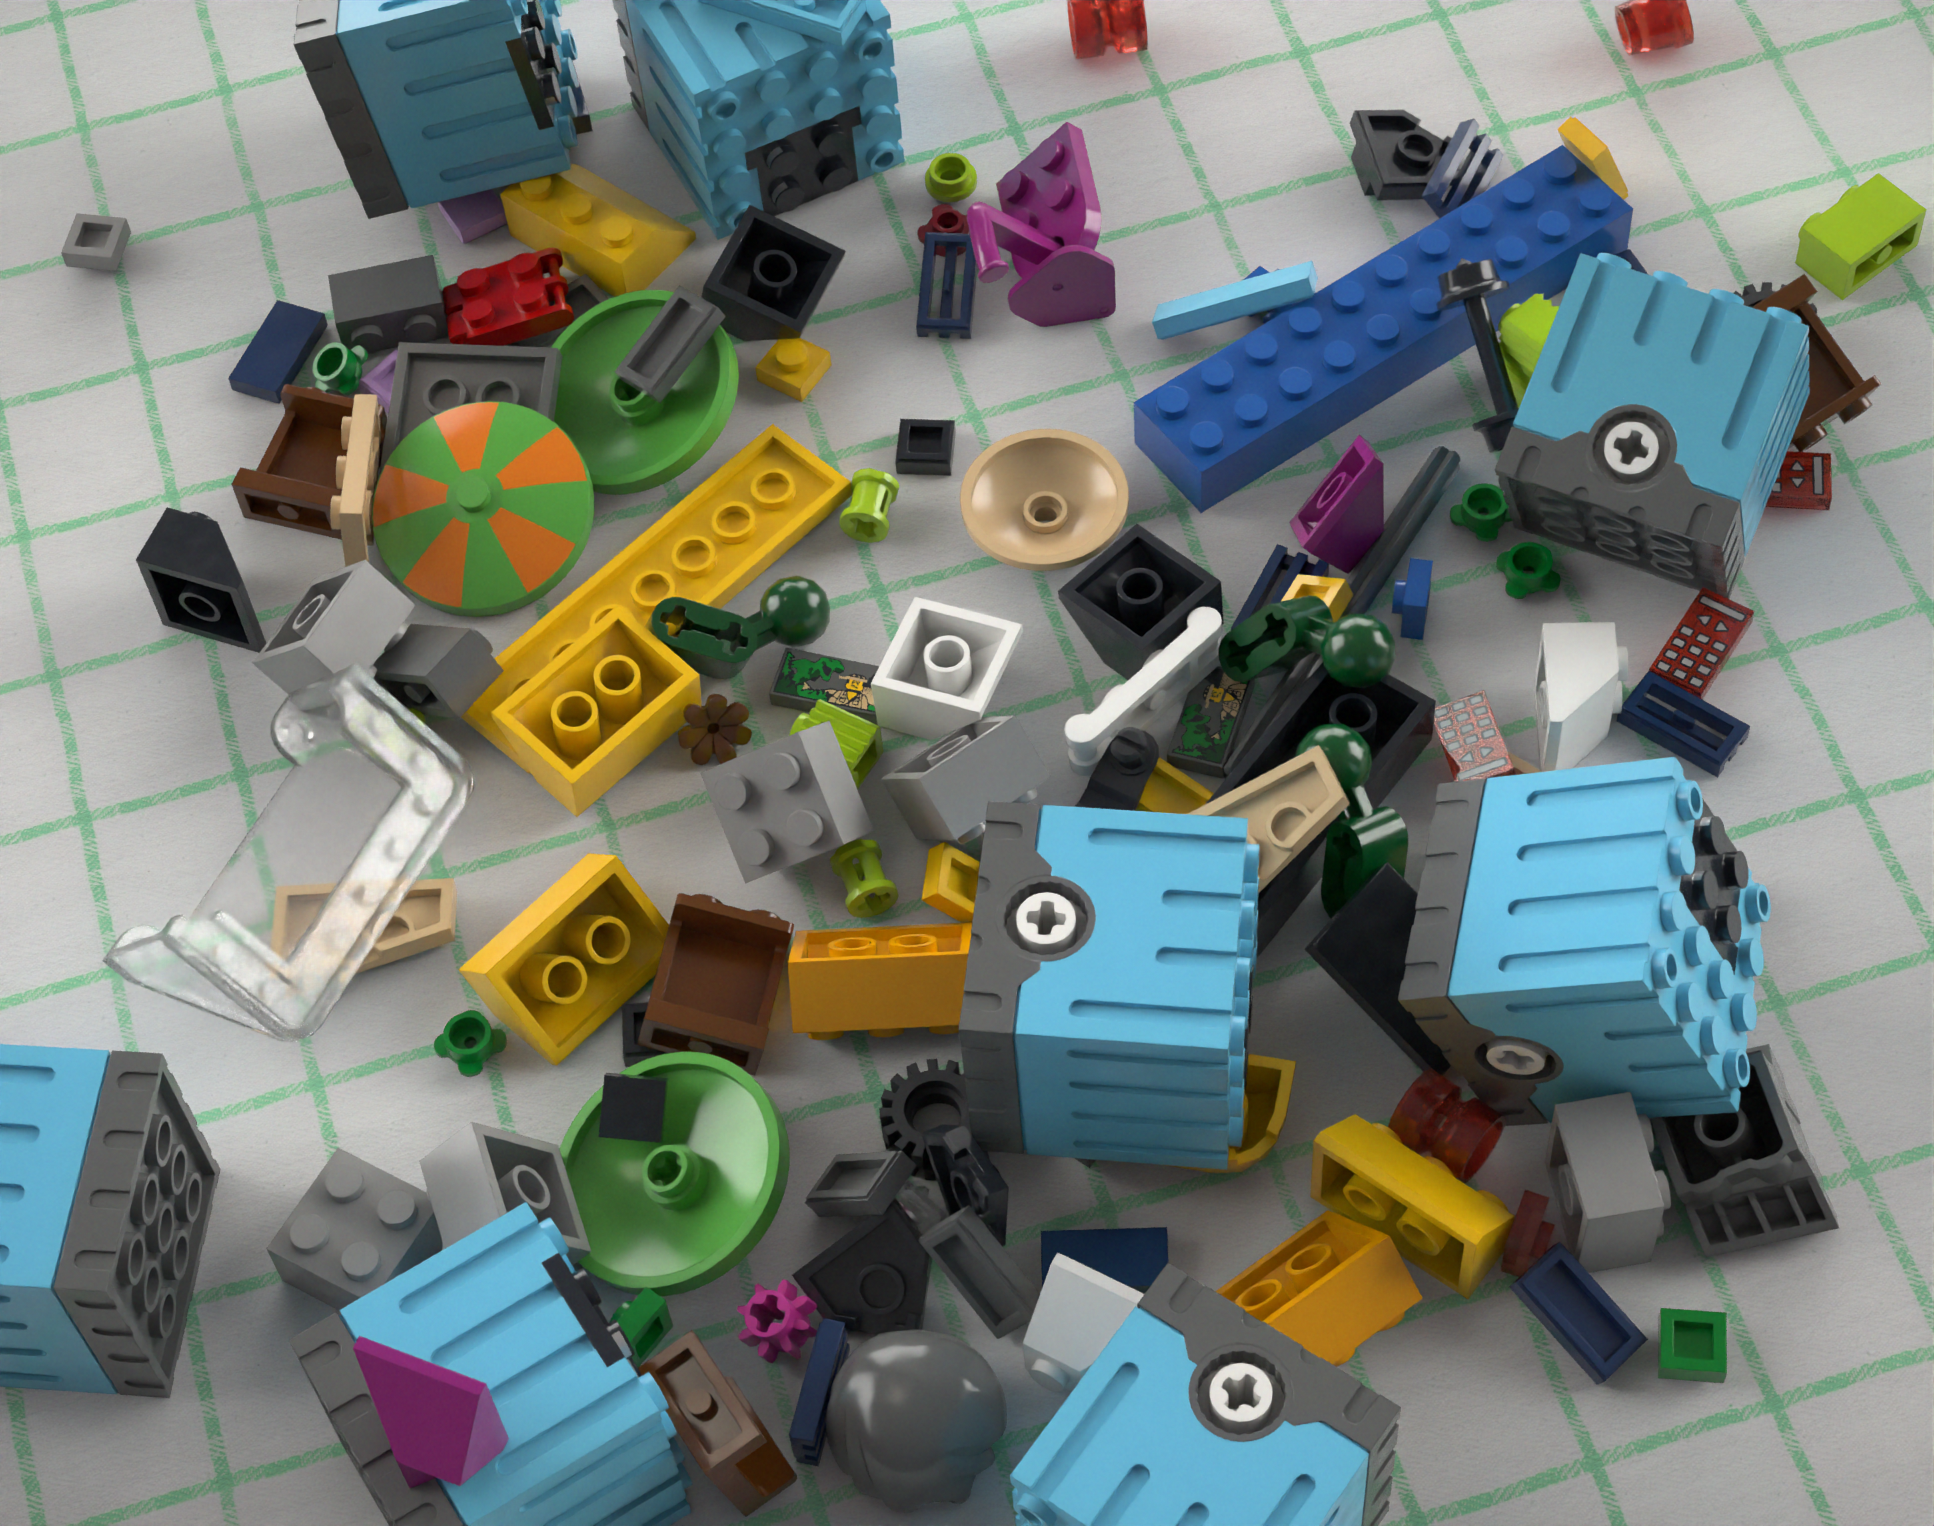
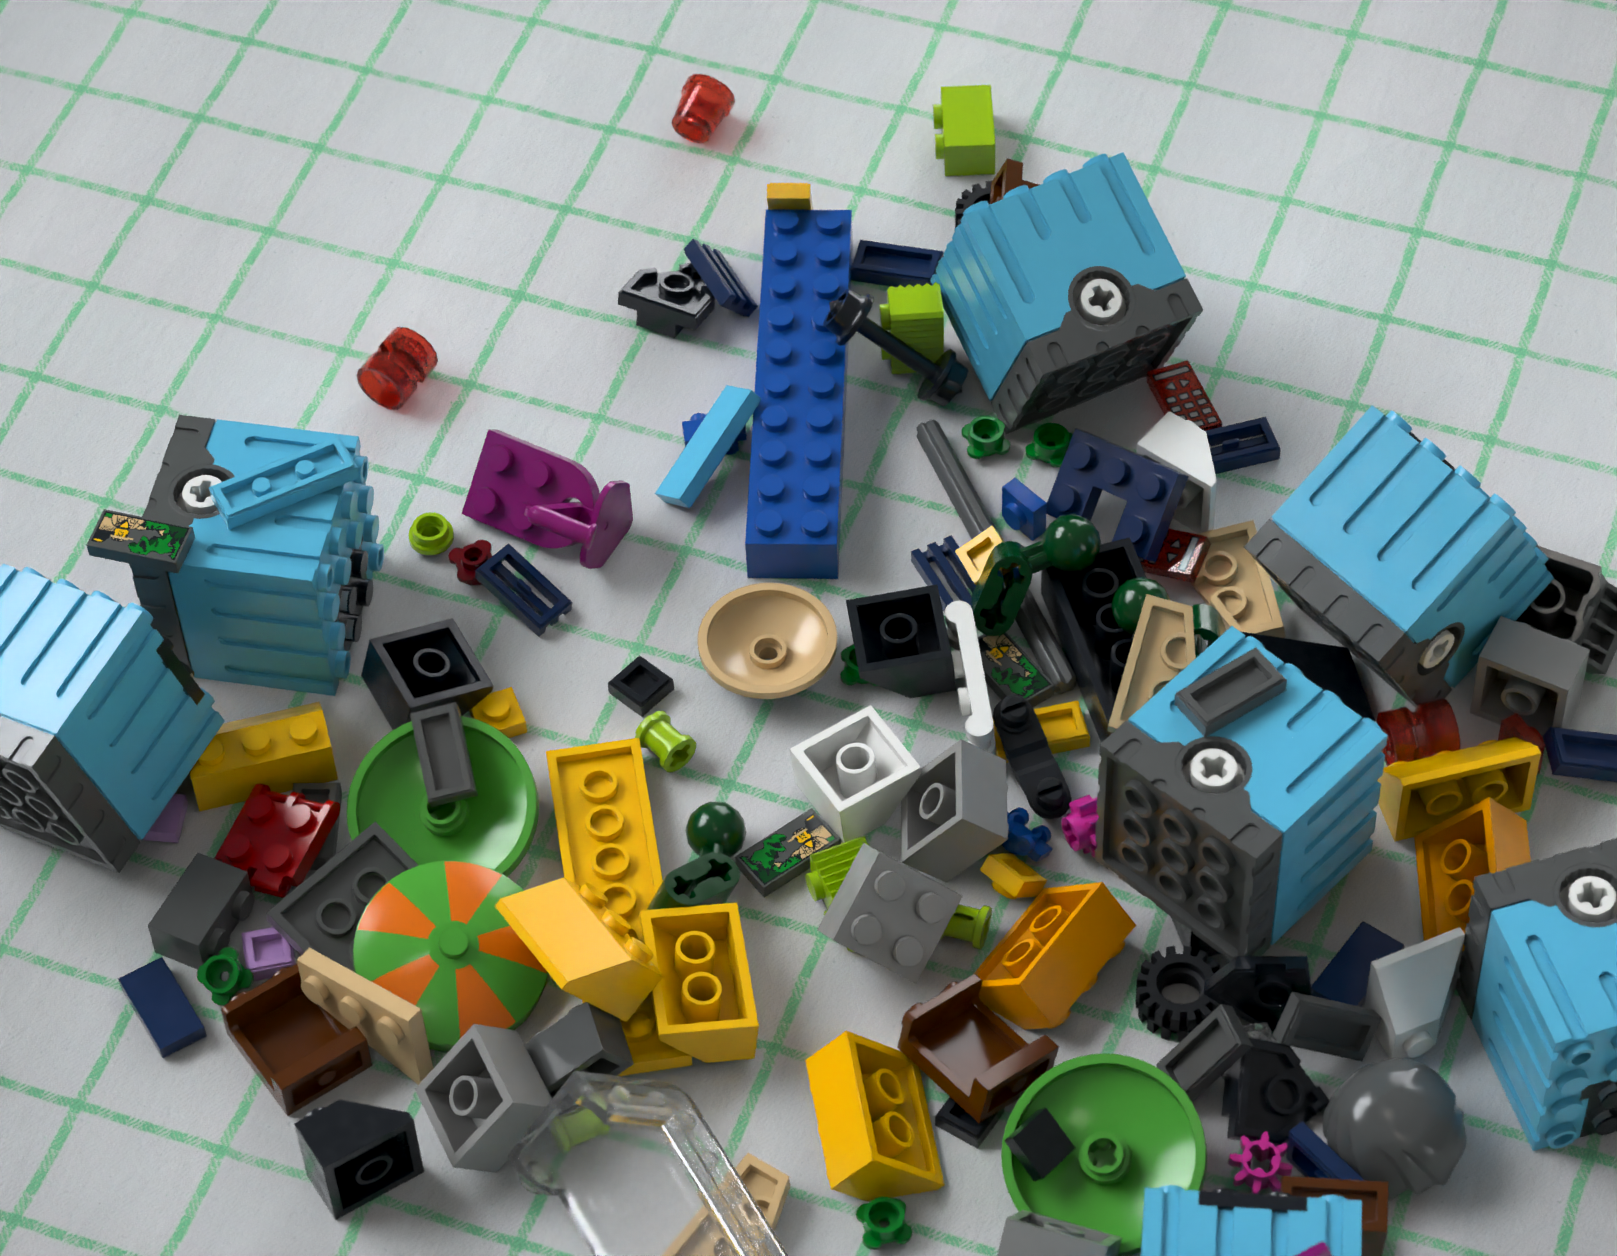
camera: 55 degrees left, 5 degrees down
(531, 583) = (583, 945): none -> yellow slope
(714, 729) = (765, 933): reddish brown plant -> none
(1150, 869) = (1230, 692): none -> dark grey tile
(1345, 509) = (925, 490): magenta slope -> none
(1506, 631) = (1146, 485): none -> dark blue plate

